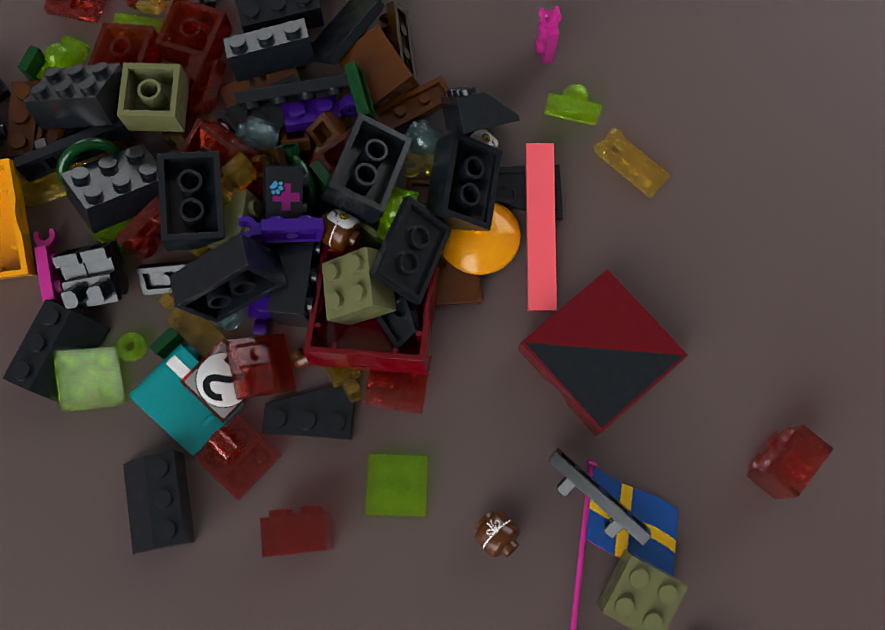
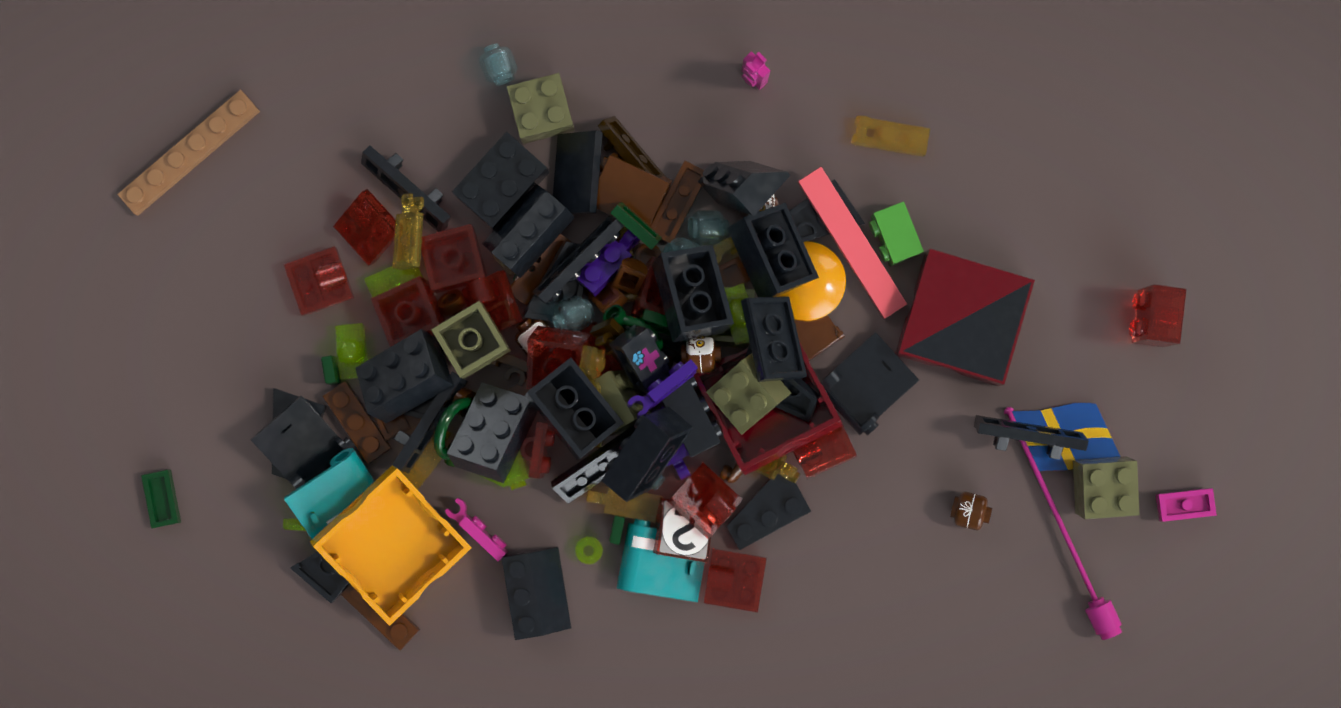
camera: 30 degrees left, 10 degrees up
(88, 378) = (578, 596): clear neon green plate -> none
(92, 275) = (521, 515): black hips -> none
(158, 501) = (696, 654): black slope -> none
(296, 533) = (823, 606): clear red brick -> none
(396, 485) = (870, 522): clear neon green plate -> none
(471, 358) = (865, 387): none -> black door
(573, 105) = (812, 115): clear neon green tile -> none
(585, 243) = (895, 234): none -> bright green brick

